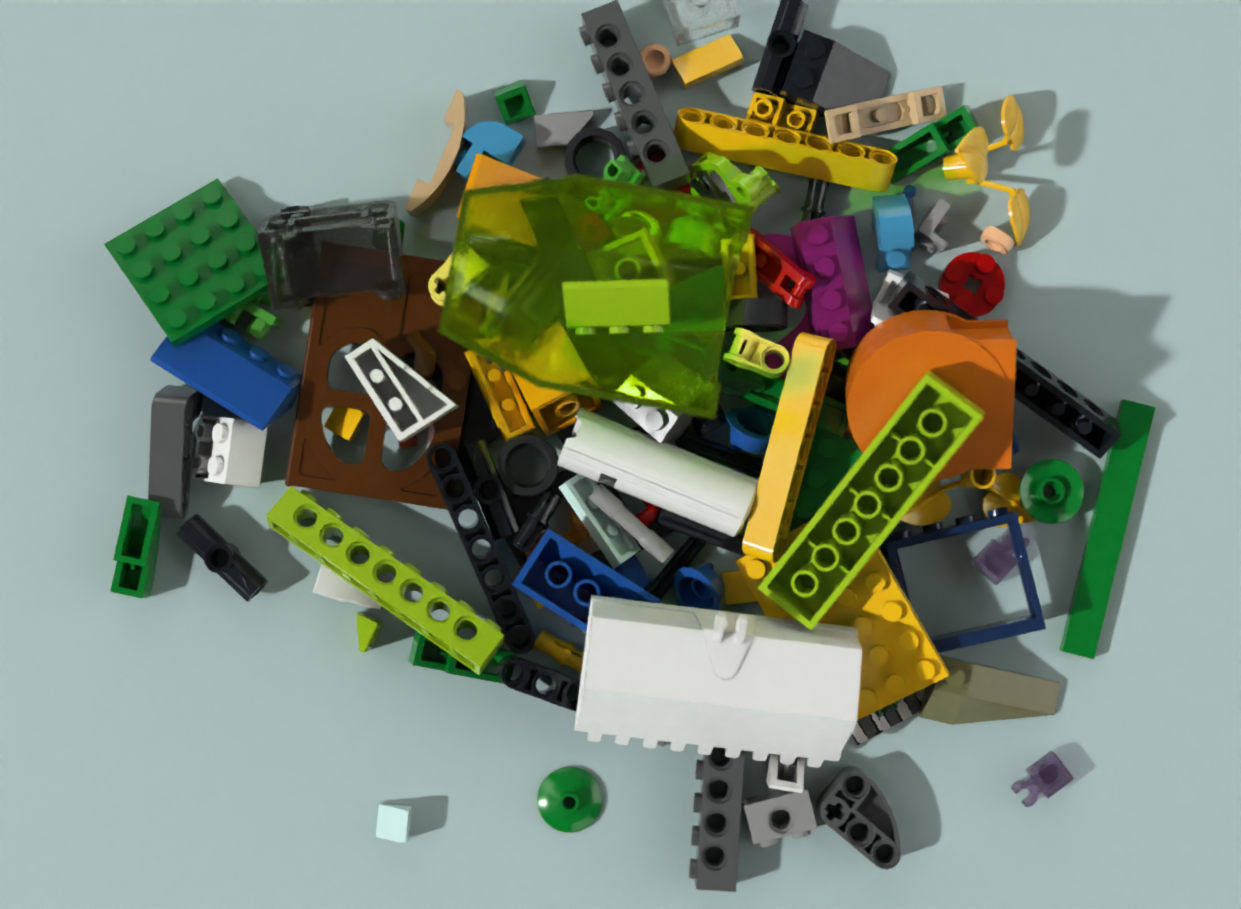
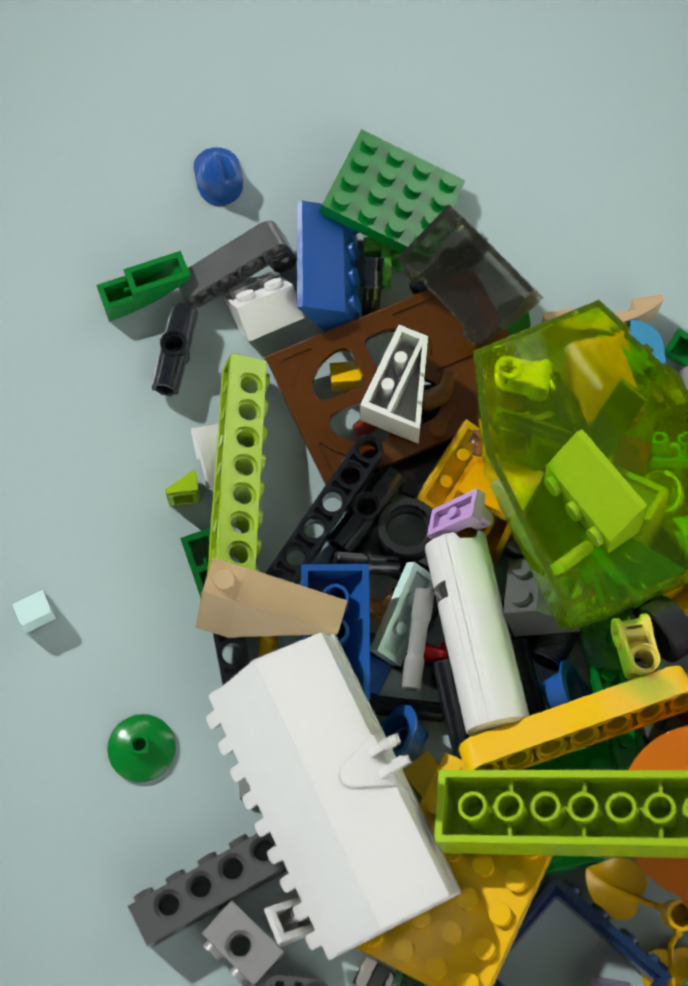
camera: 55 degrees right, 20 degrees down
(57, 402) = (218, 176): none -> blue piece
(275, 341) = (372, 284): none -> black axle
(525, 646) = (256, 604): none -> tan wedge
(553, 423) = (459, 514): none -> lavender hinge
(665, 369) = (572, 557): none -> lime bar

